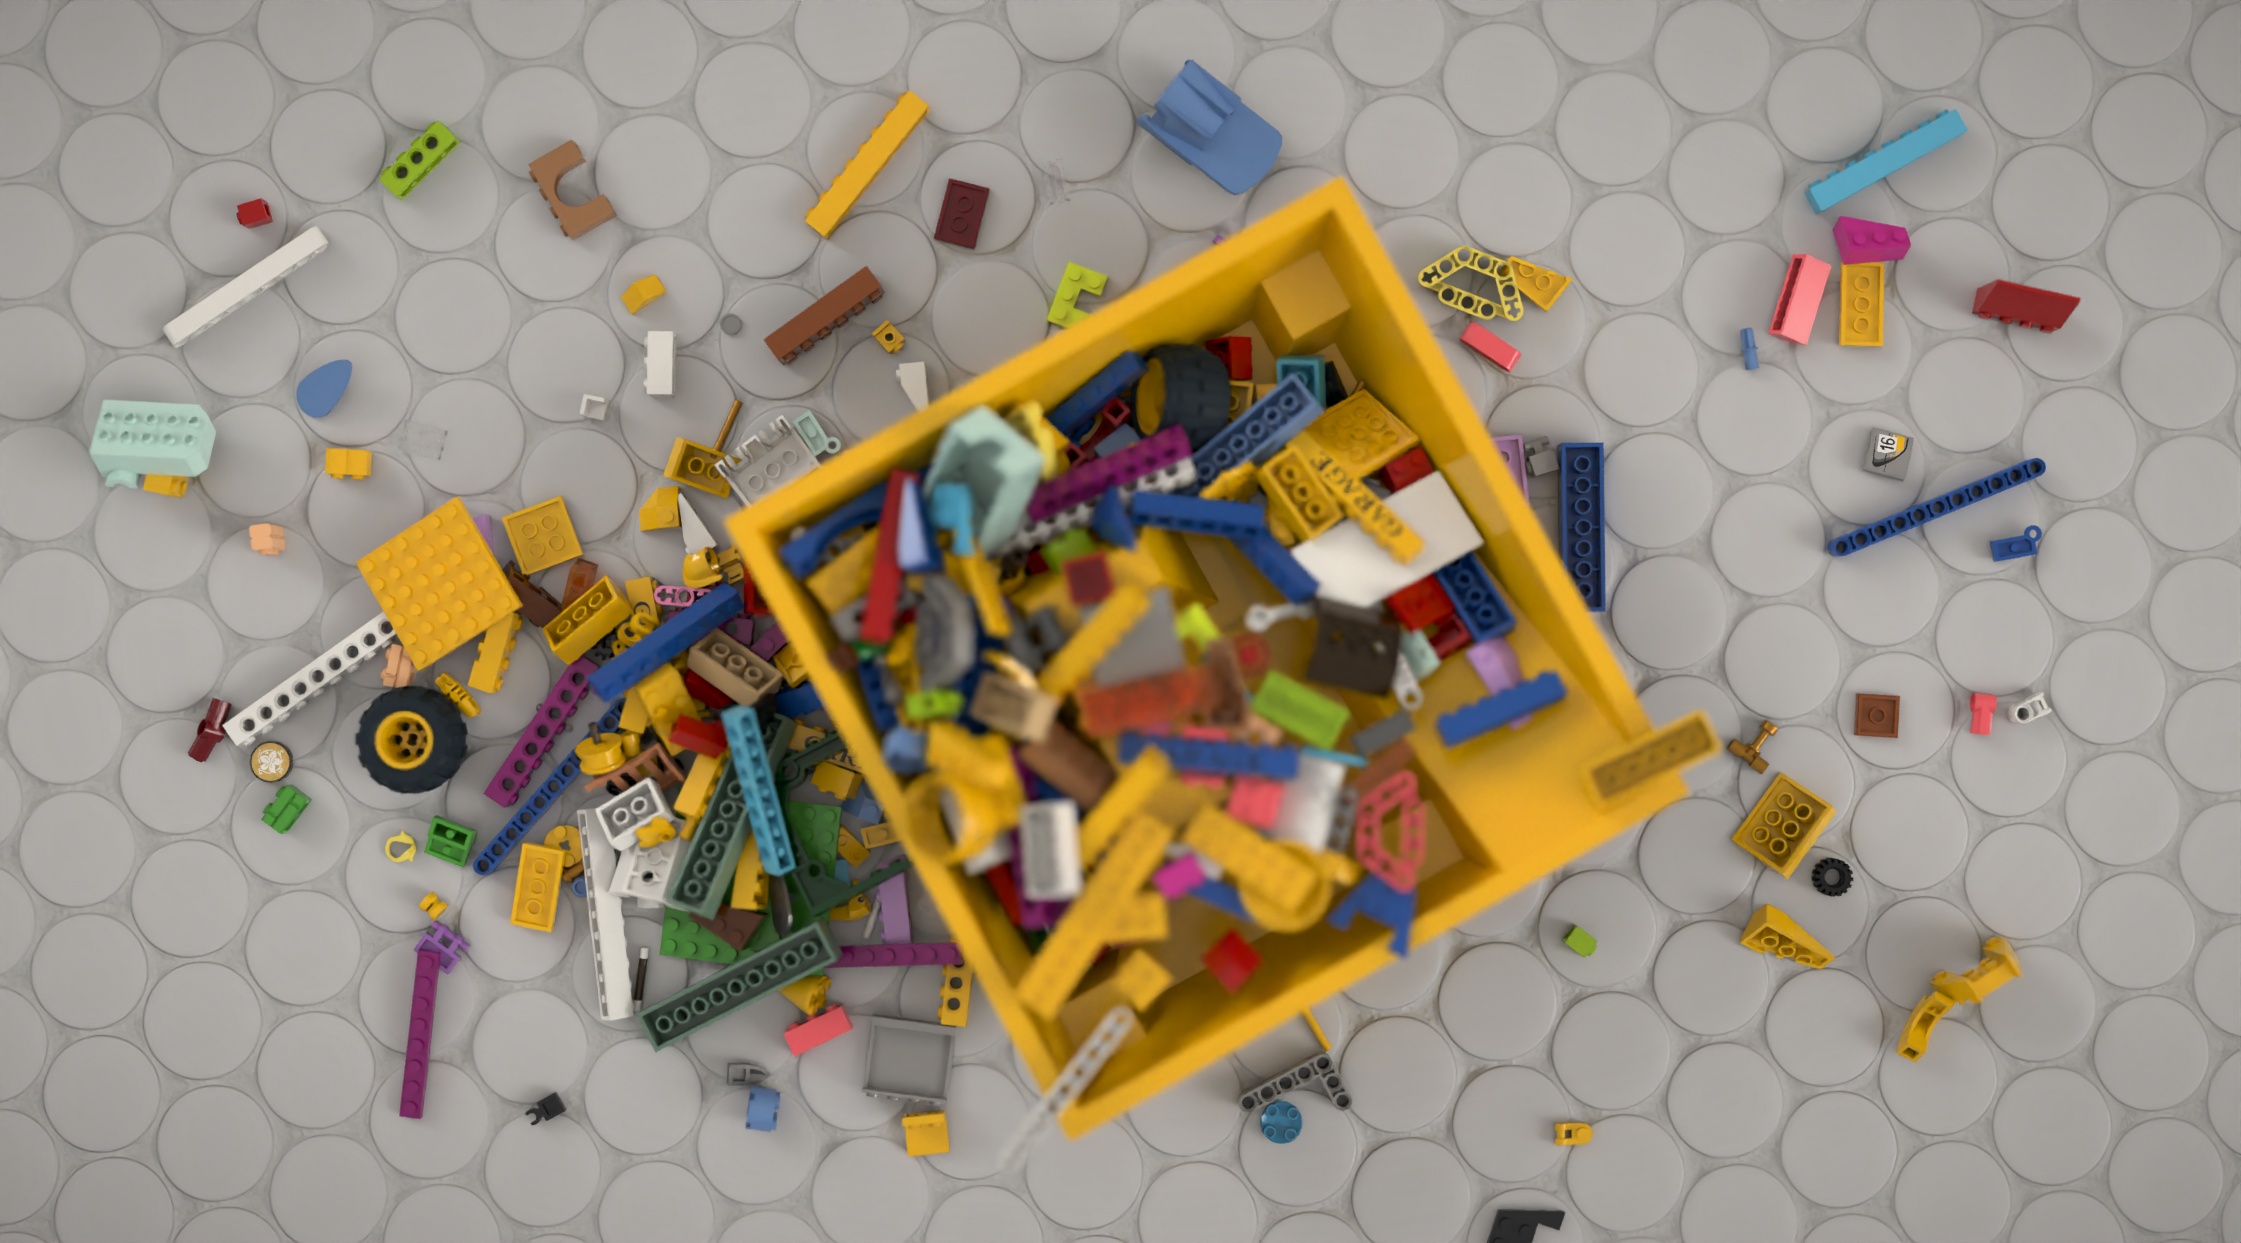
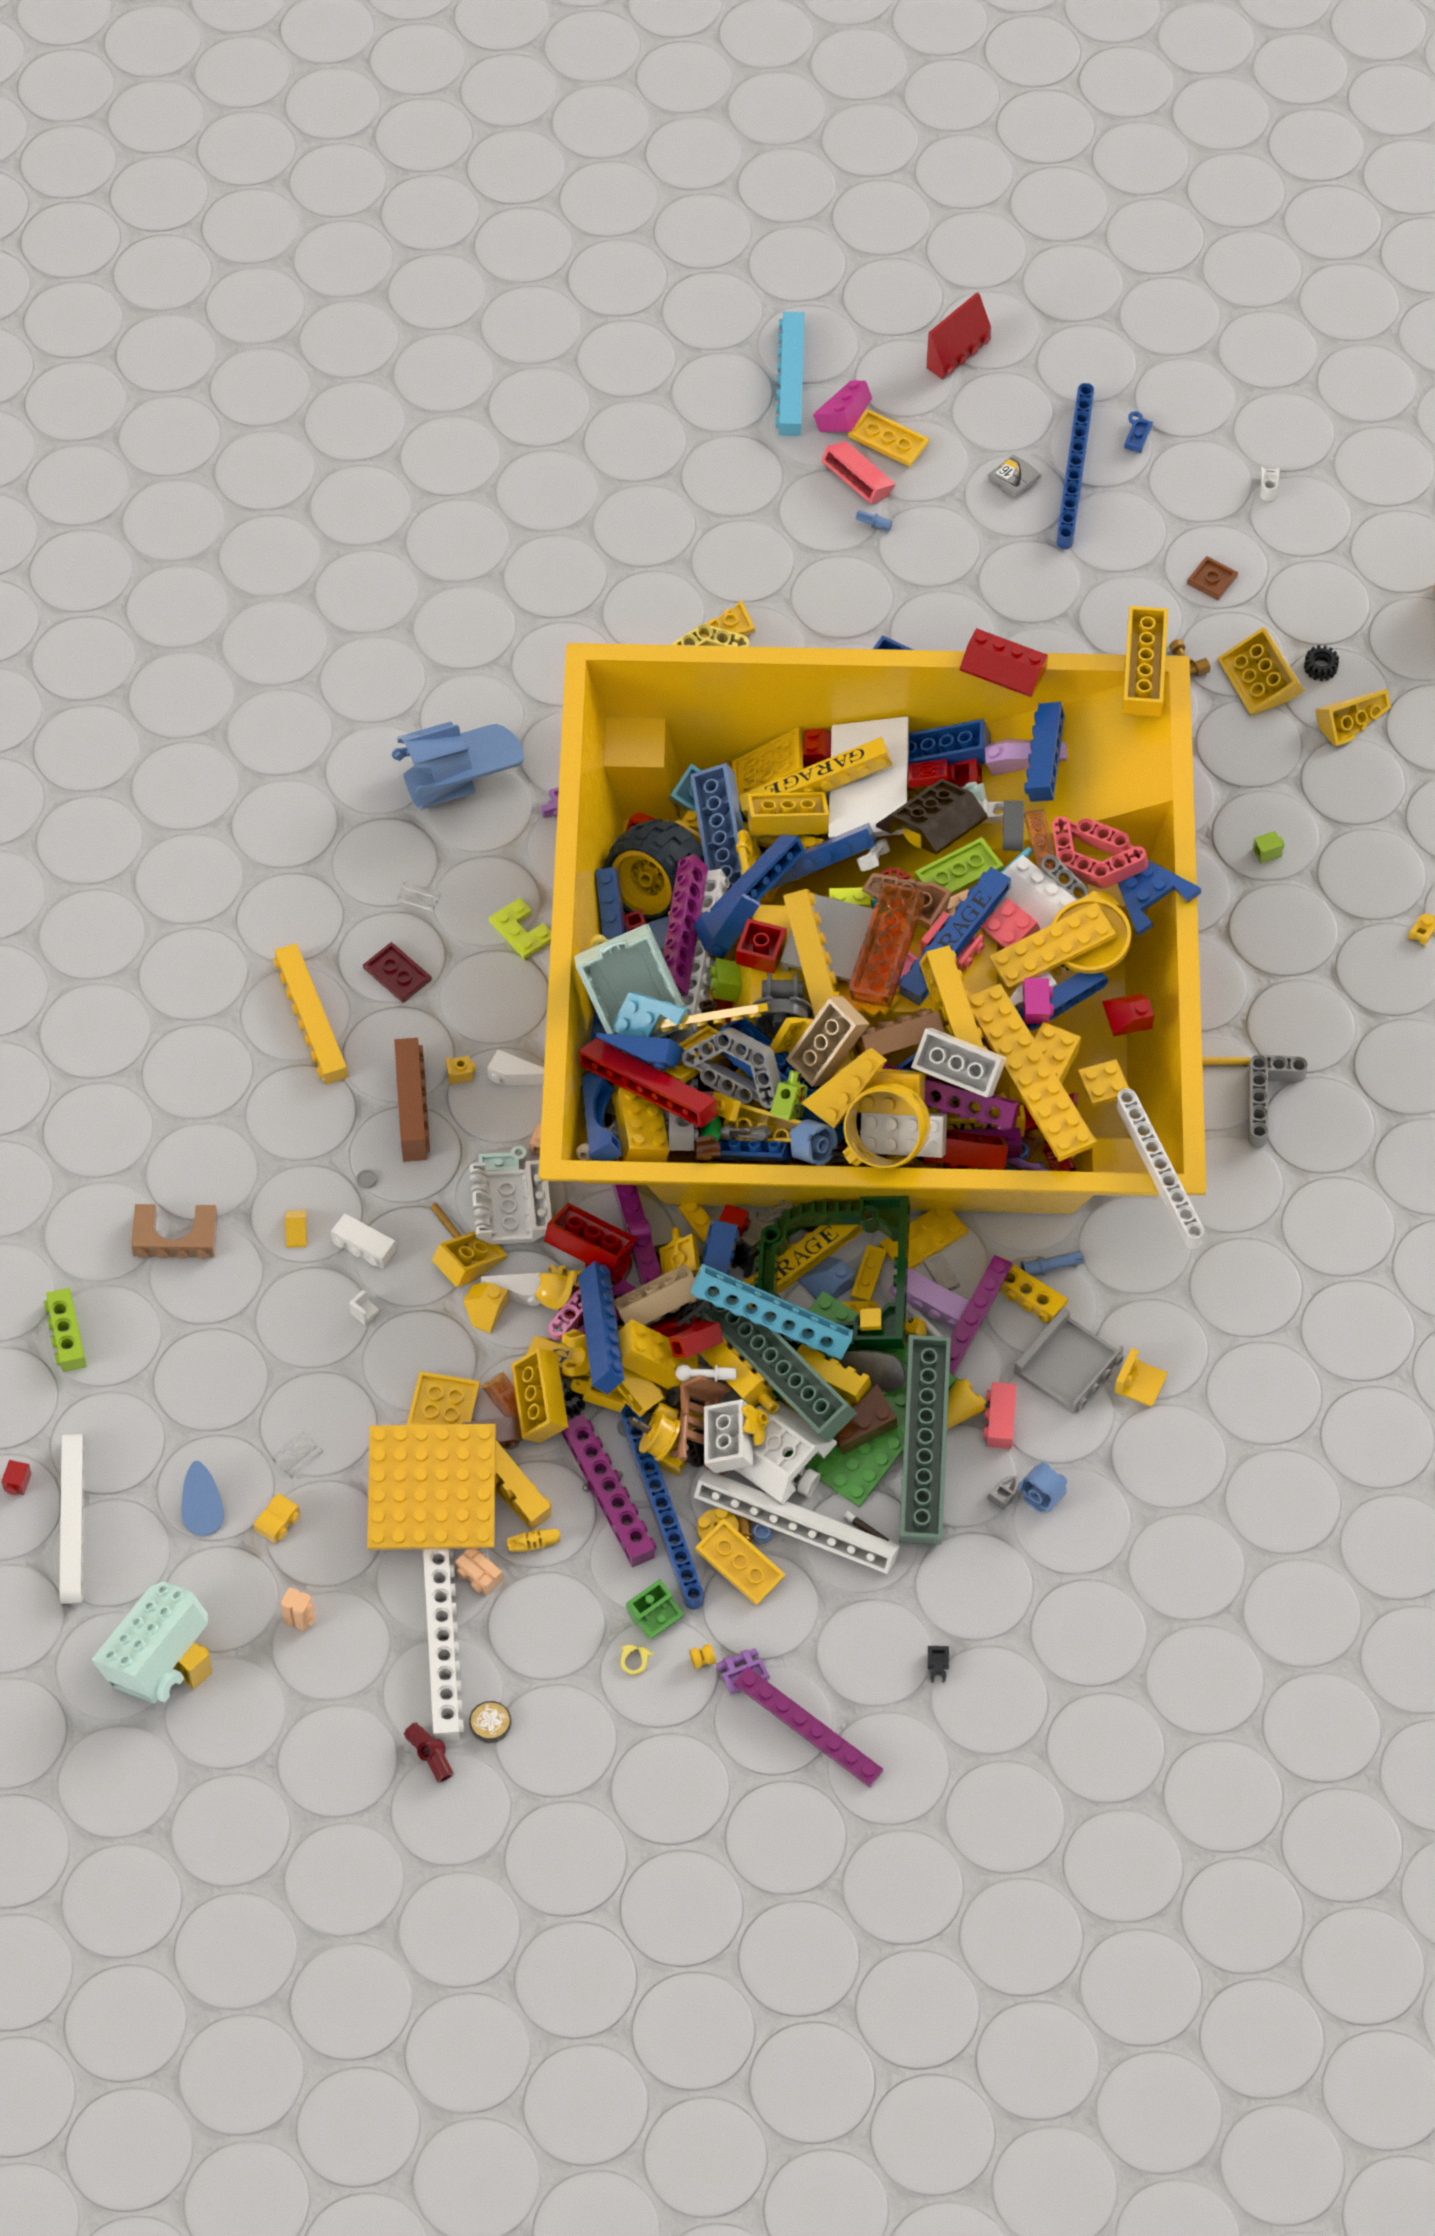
camera: 55 degrees left, 30 degrees down
(285, 809) = (539, 1728): bright green brick -> none
(386, 757) = (555, 1606): black wheel -> none
(681, 774) = (684, 1373): none -> white pin
(815, 877) = (871, 1319): none -> yellow tile
(836, 779) = (799, 1286): yellow brick -> none
(1281, 1122) = (1290, 1122): dark azure dish -> none
(1566, 619) = (1004, 662): none -> red slope
(1982, 709) = (1250, 509): coral piece -> none

